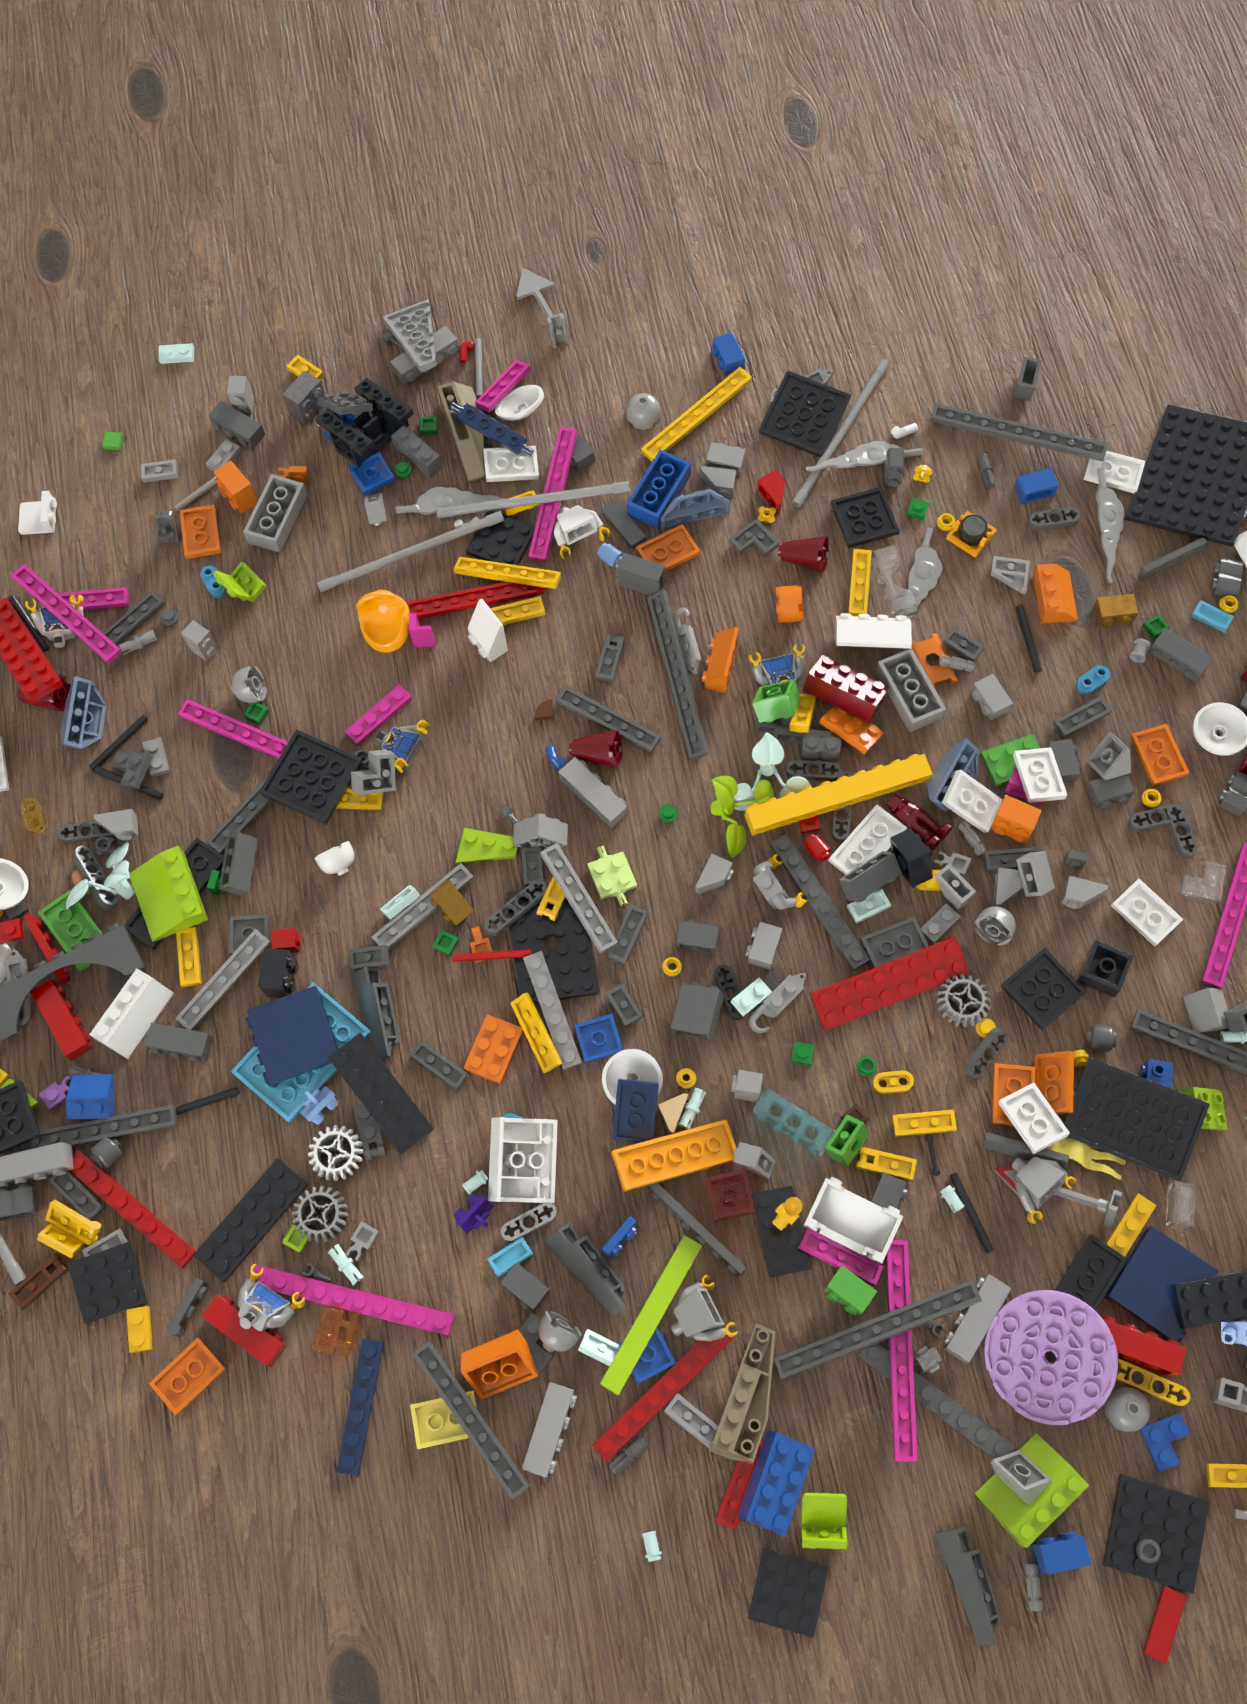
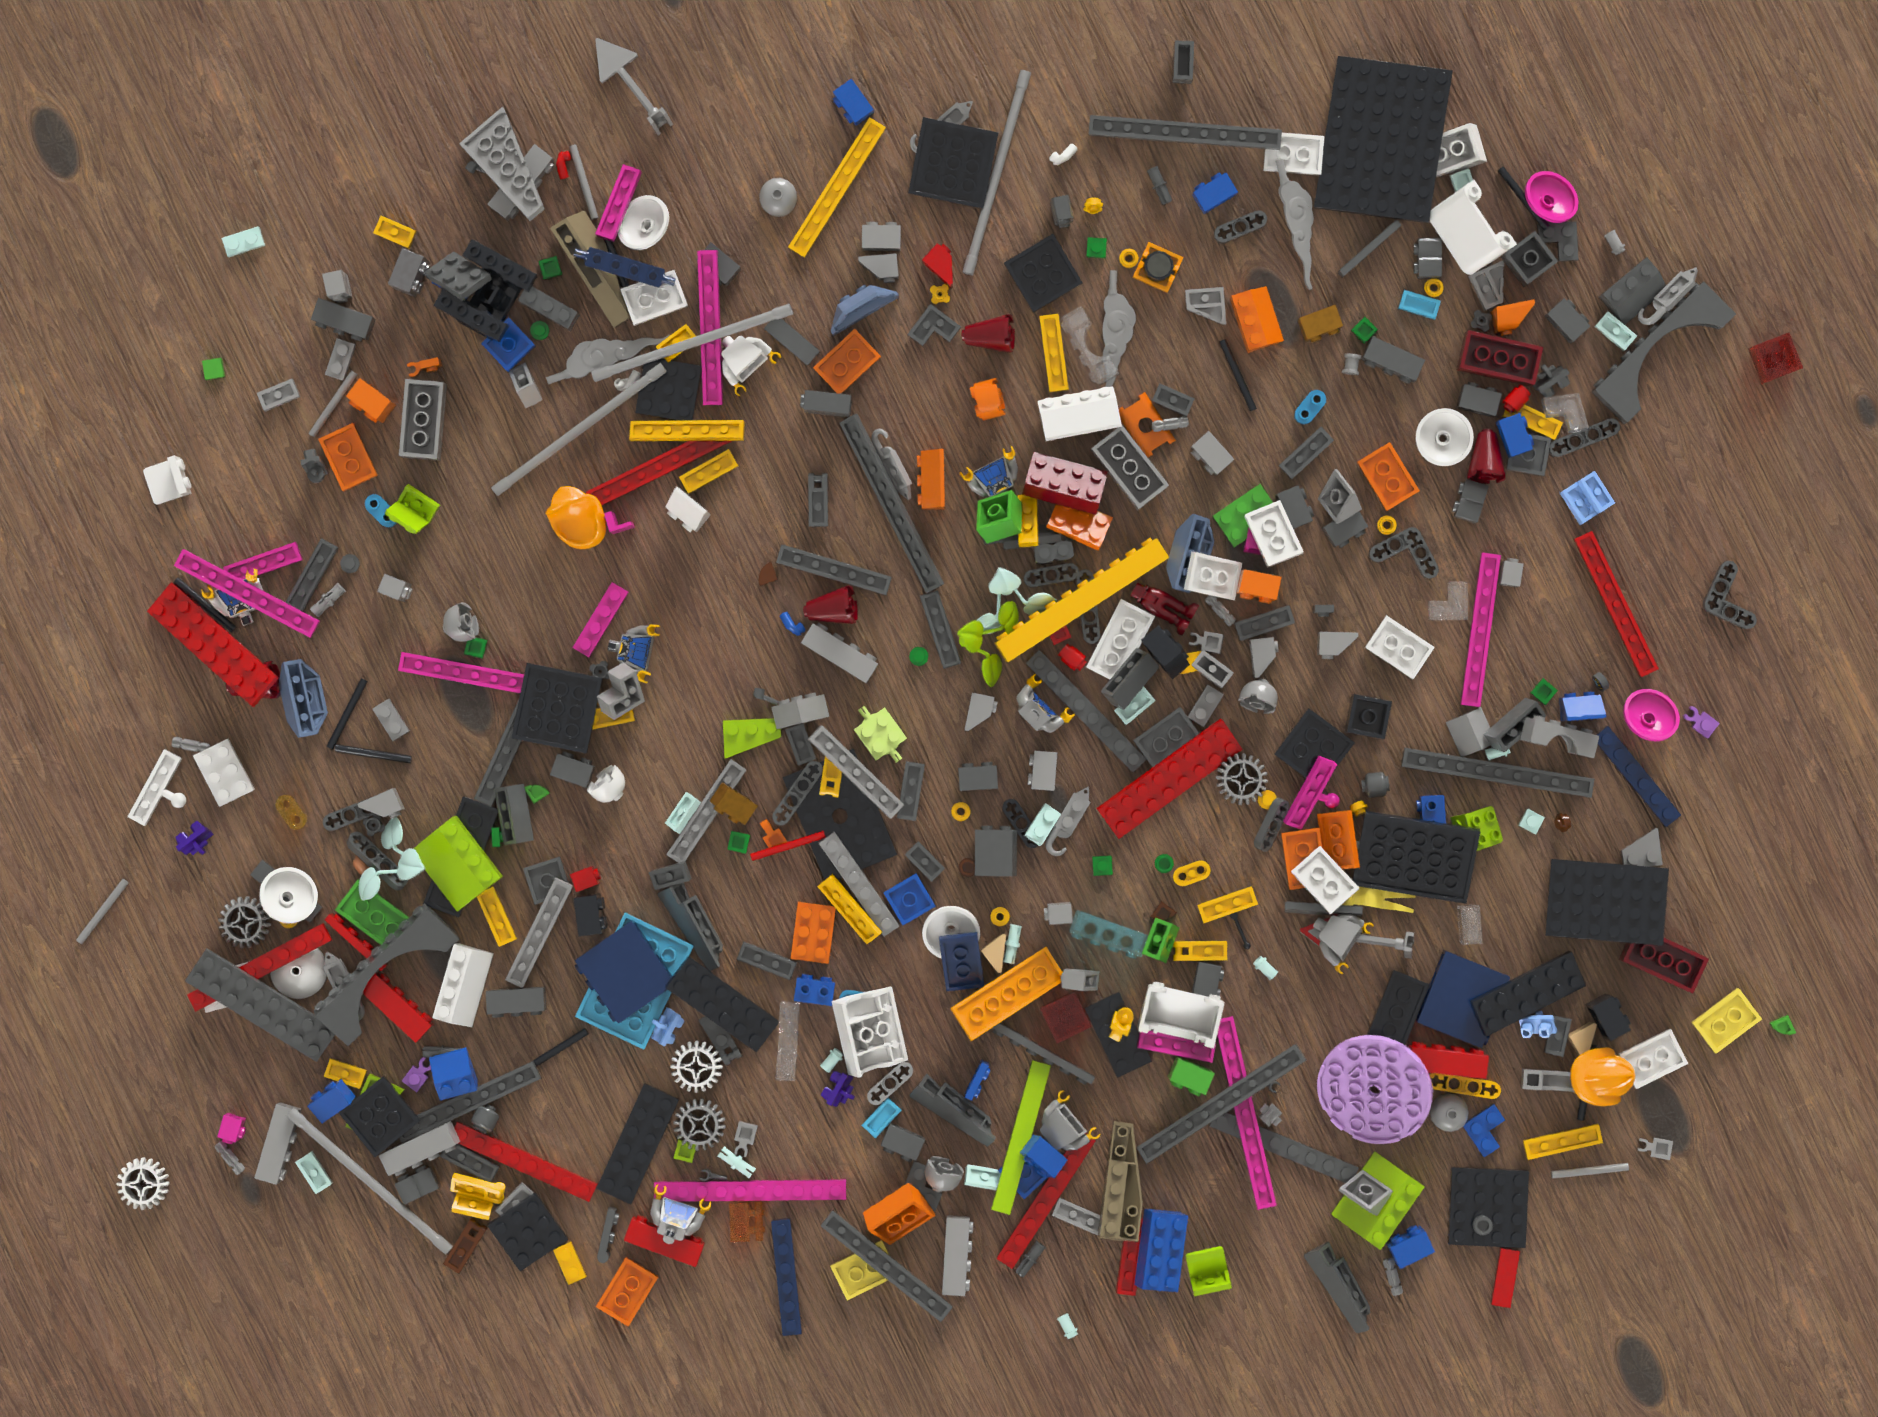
camera: 20 degrees left, 20 degrees up
(135, 767) = (377, 738): dark grey plate -> none
(267, 853) = (536, 792): none -> bright green tile
(307, 838) = (572, 770): none -> dark grey brick
(441, 1135) = (788, 1041): none -> clear arch
(477, 1105) = (814, 990): none -> blue brick
(609, 554) = (789, 383): medium blue brick -> none
(658, 487) = (820, 293): blue brick -> none
(664, 1022) = (967, 867): none -> reddish brown plate
(670, 1339) = (1043, 1156): none -> blue brick
(695, 795) = (940, 629): none -> dark grey tile
(788, 1592) = (1189, 1332): black plate -> none
(864, 455) = (1030, 196): light grey piece -> none
(971, 1212) = (1285, 975): black bar -> none
(976, 1319) = (1305, 1075): light grey brick -> none
(1033, 1029) = (1312, 792): none -> dark pink plate
(1035, 874) = (1287, 638): light grey brick -> none
(1130, 1224) = (1428, 951): yellow plate -> none

